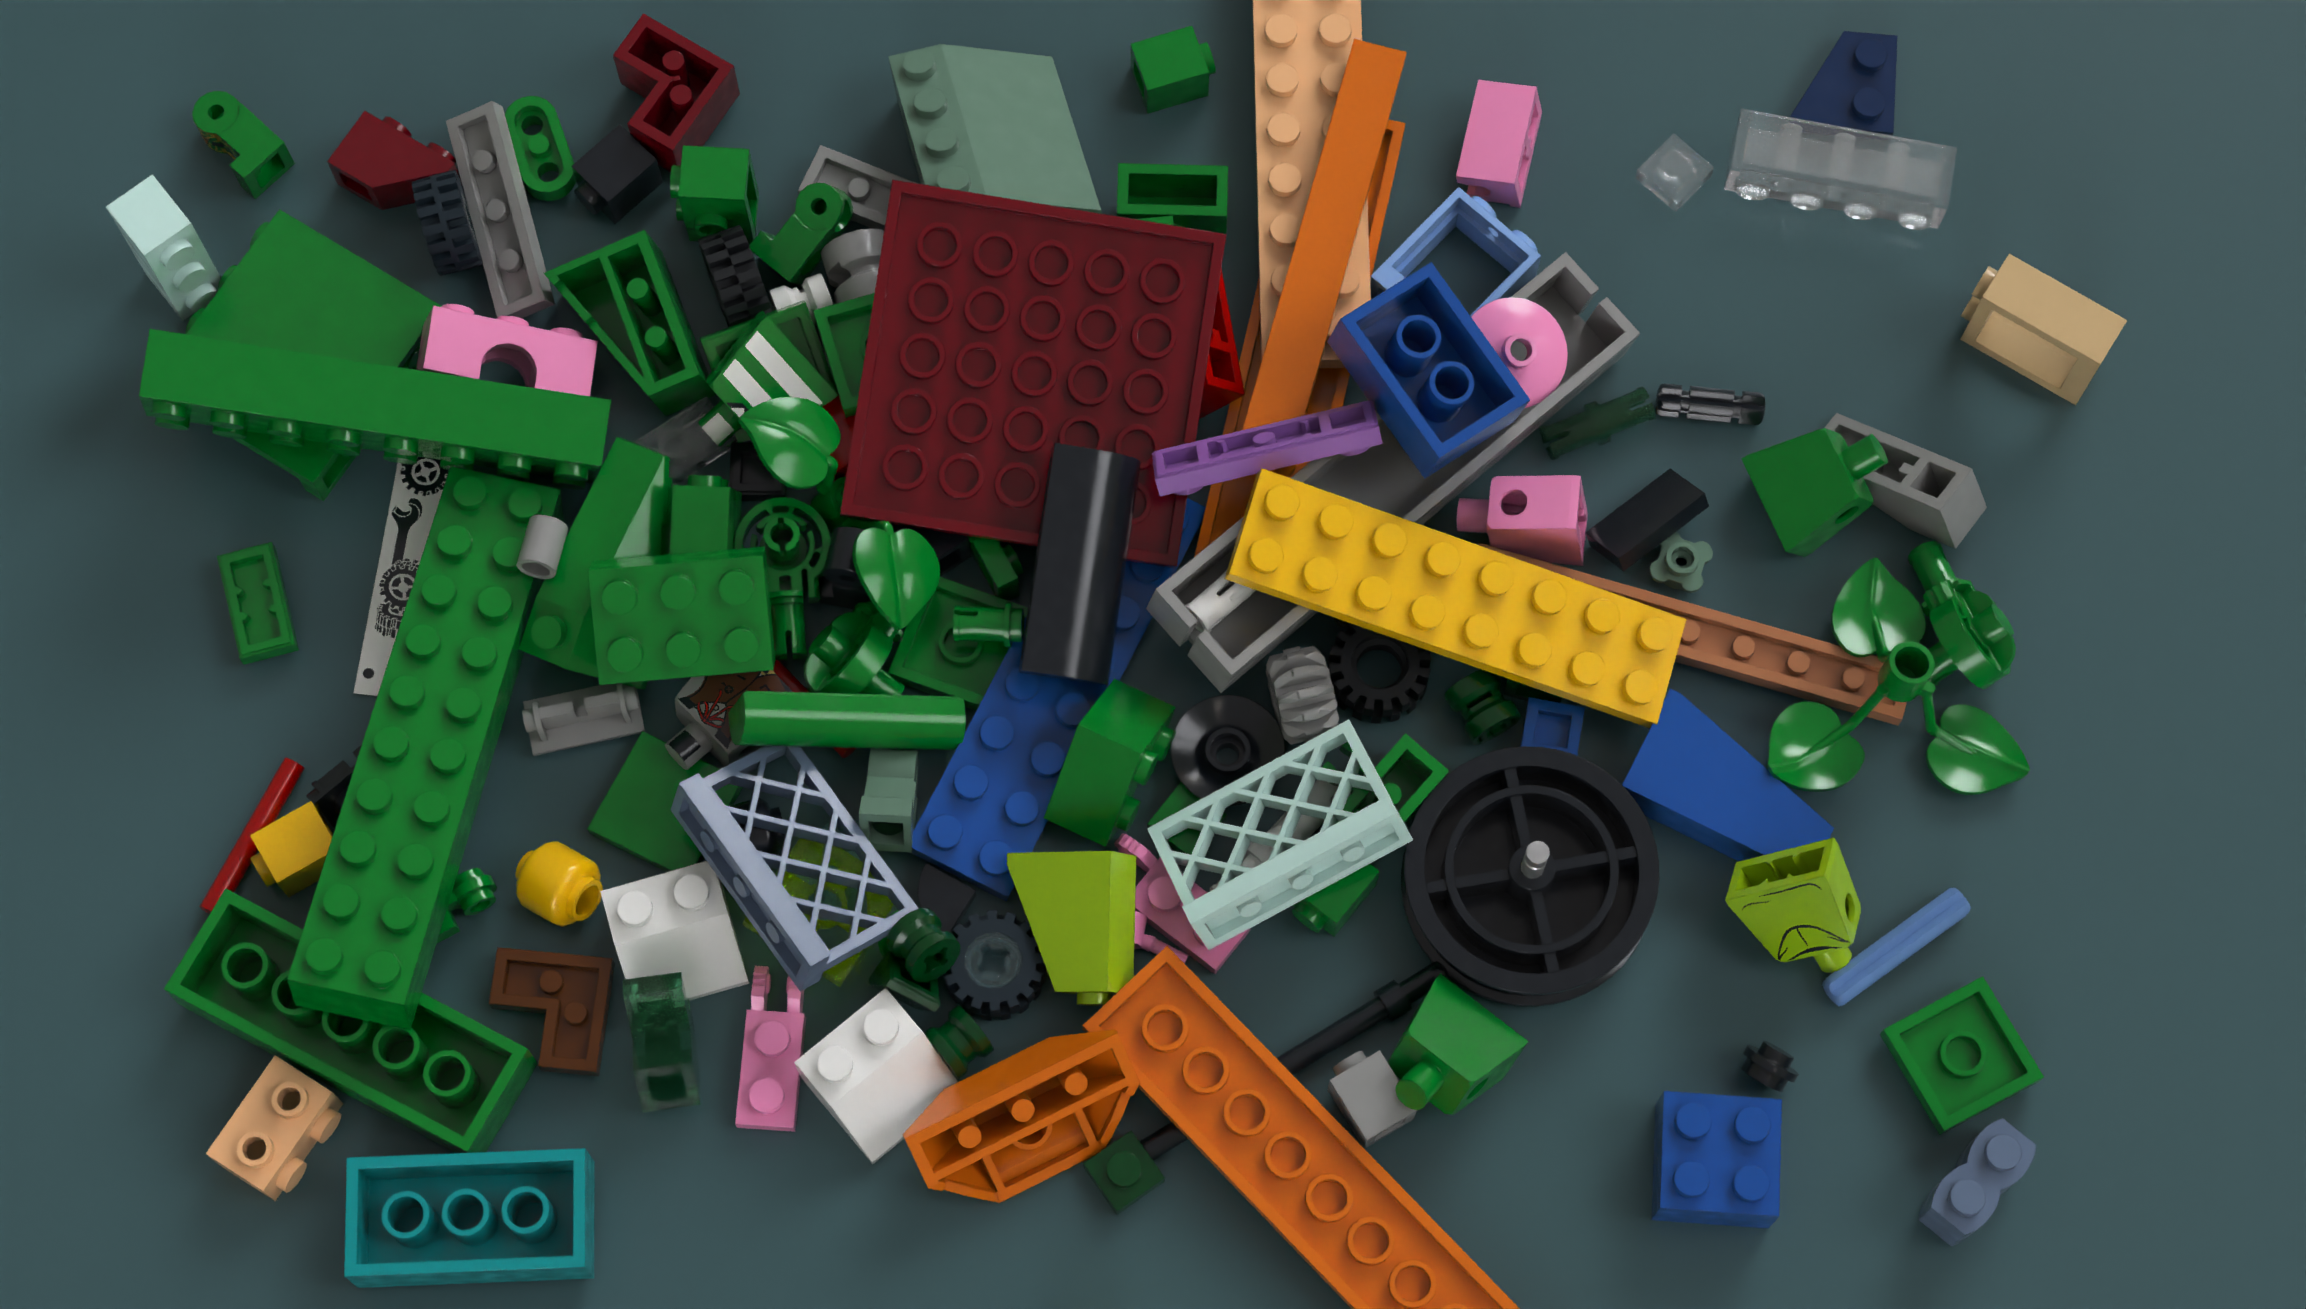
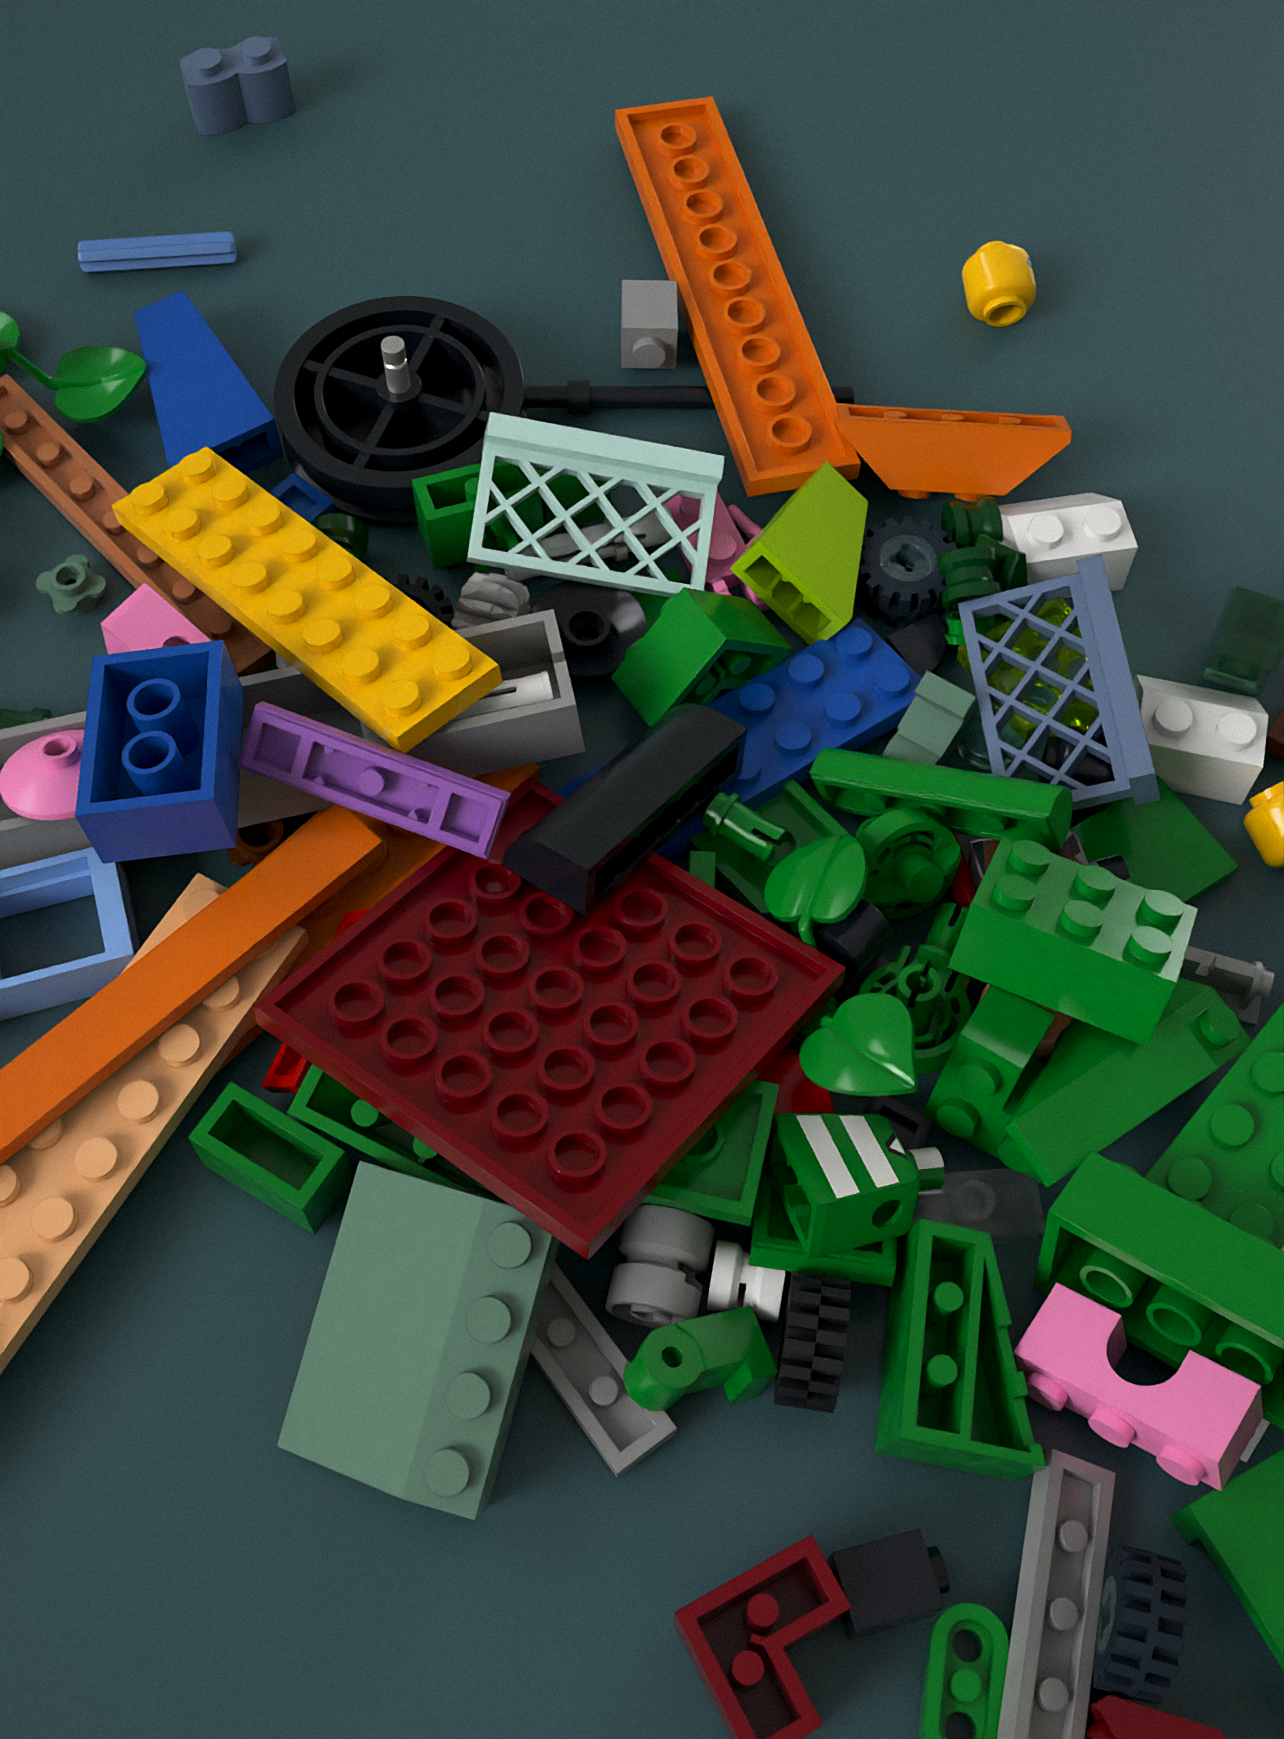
camera: 150 degrees left, 10 degrees down
(542, 546) = (1195, 1101): light grey hinge -> none
(715, 191) = (783, 1457): green brick -> none
(770, 1047) = (1152, 596): bright pink hinge -> none
(1124, 1172) = (880, 385): dark green plate -> none
(1171, 69) = (158, 1334): green brick -> none
(1452, 1050) = (564, 317): green torso -> none
(1647, 519) = (58, 627): black tile -> none
(1717, 1159) = (412, 178): blue brick -> none
(1769, 1065) = (322, 218): black plate -> none
(1799, 903) = (206, 273): lime torso -> none
(1961, 1055) = (175, 165): green plate -> none

